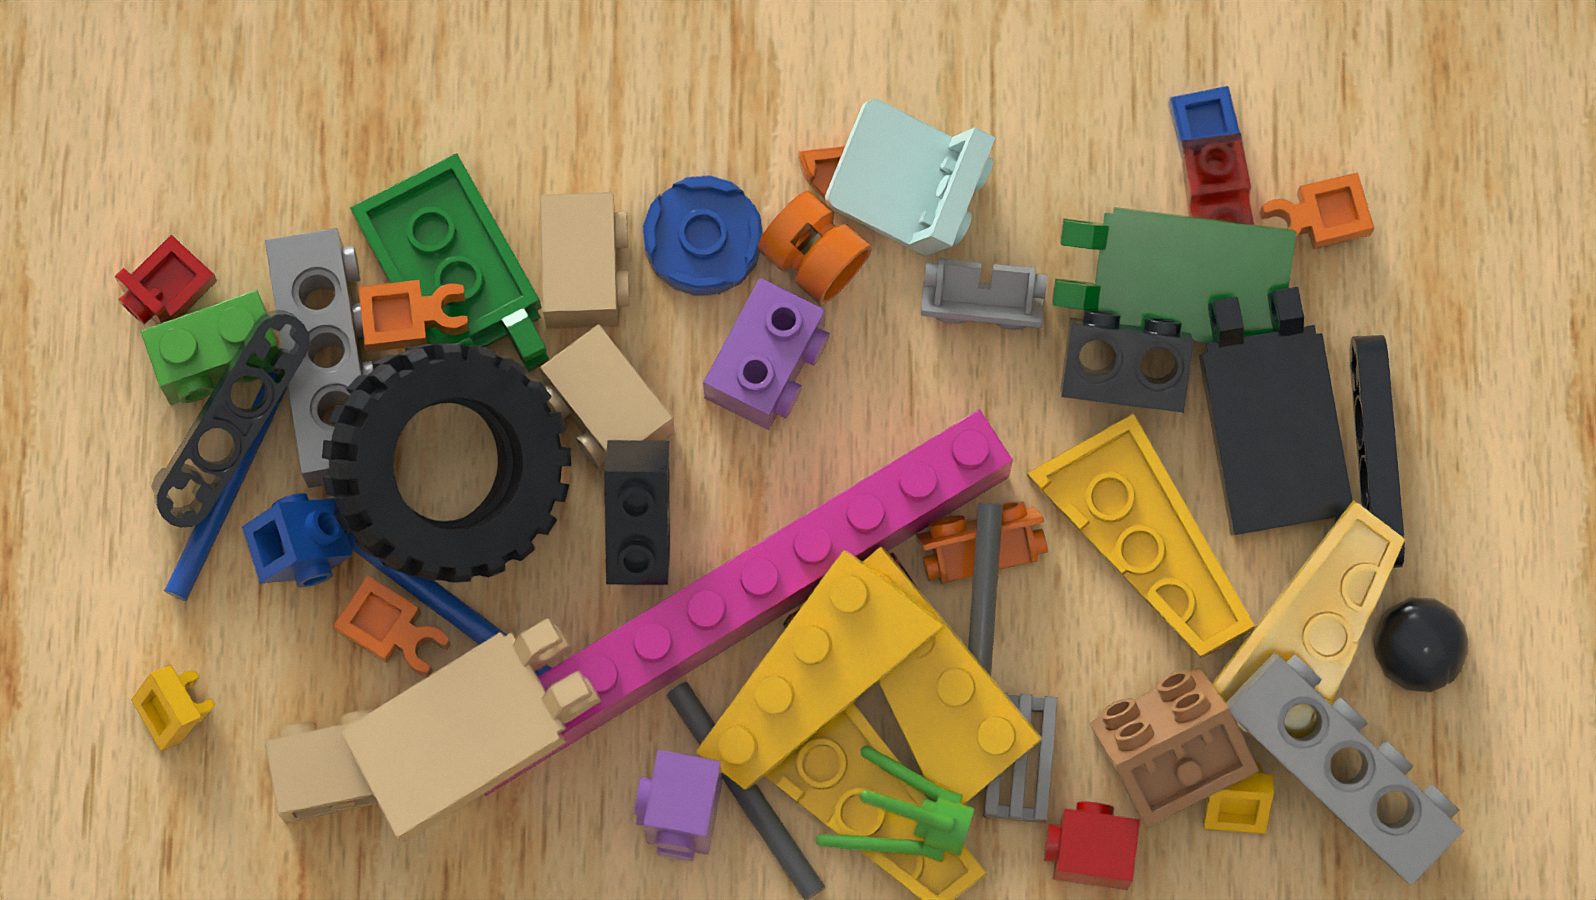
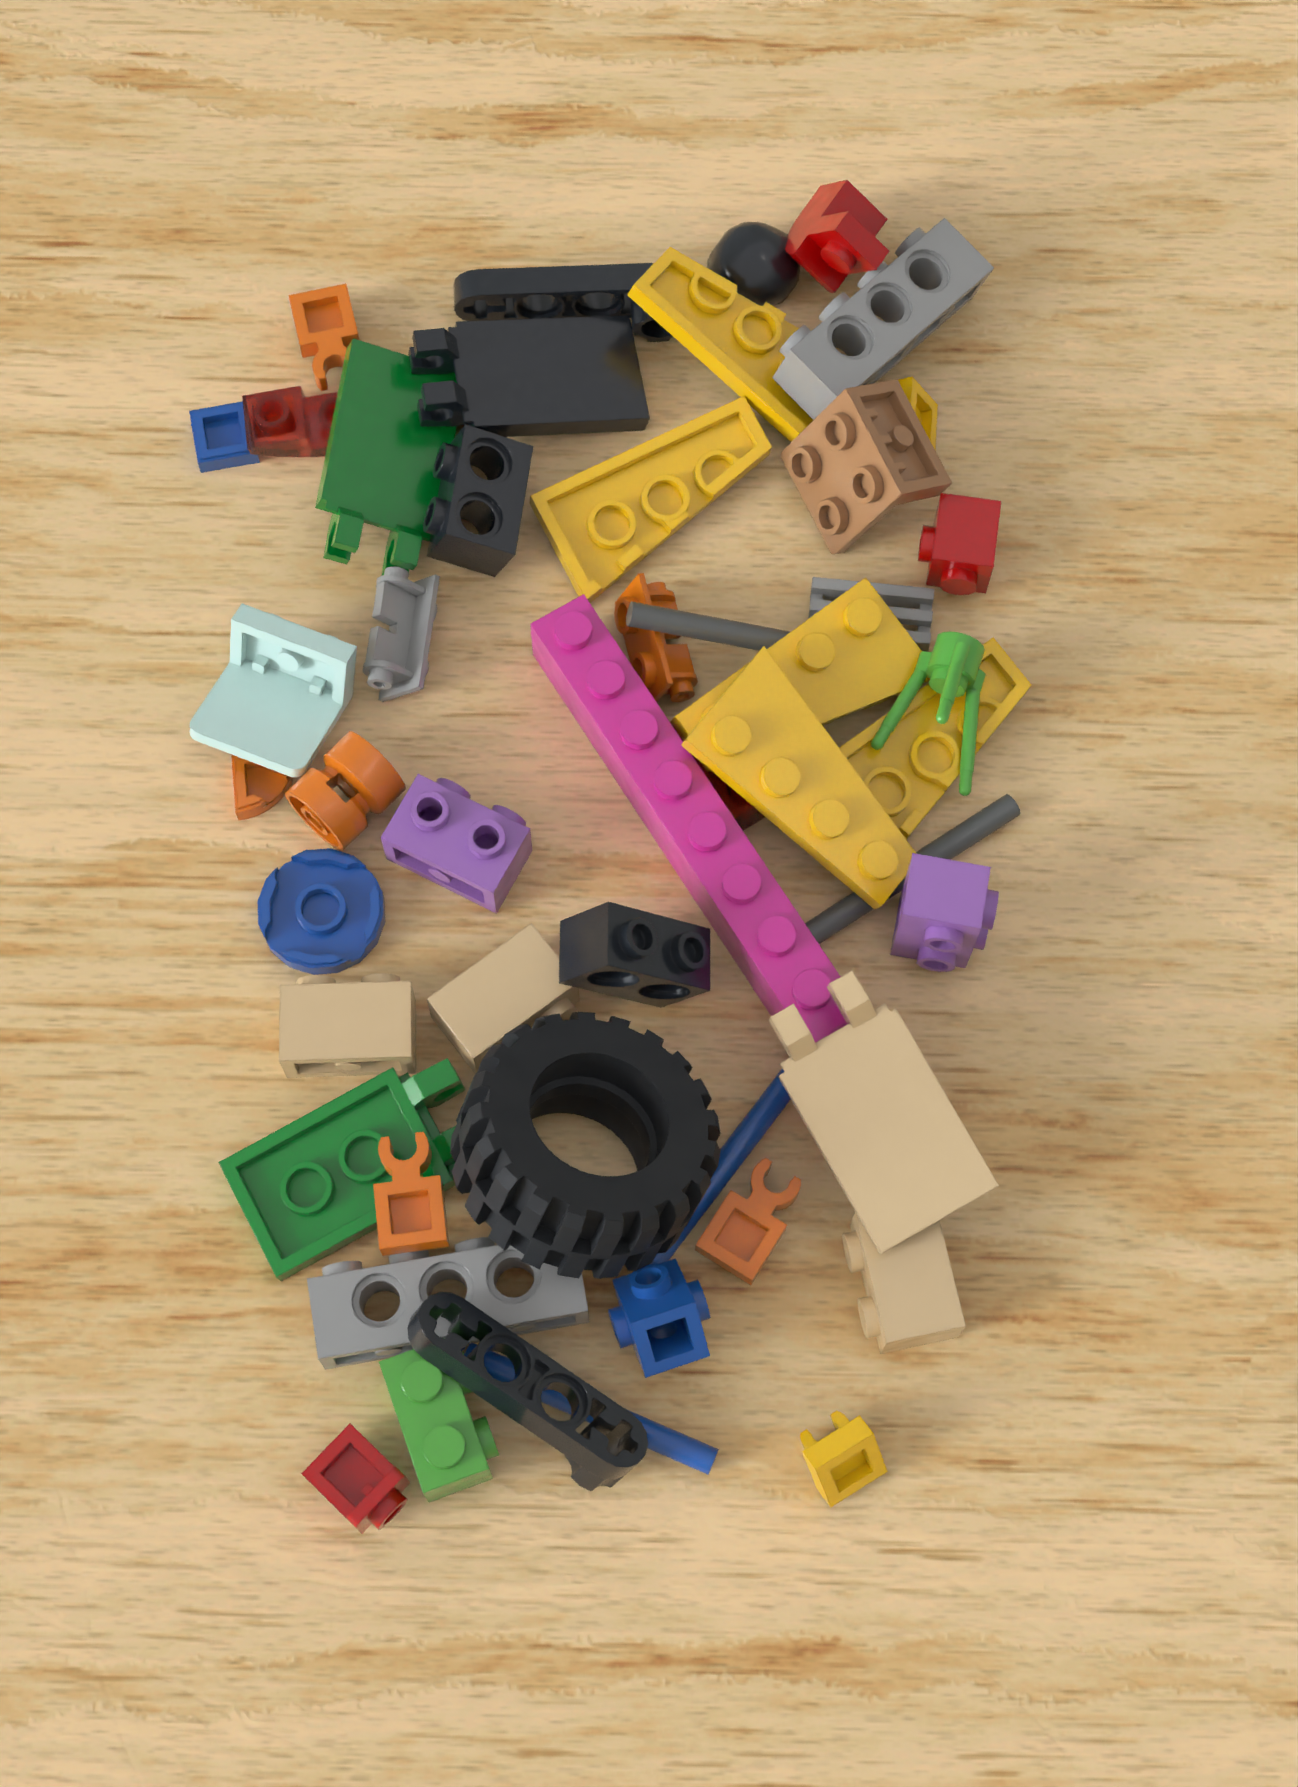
camera: 90 degrees left, 5 degrees down
(1446, 719) = (837, 235): none -> red brick

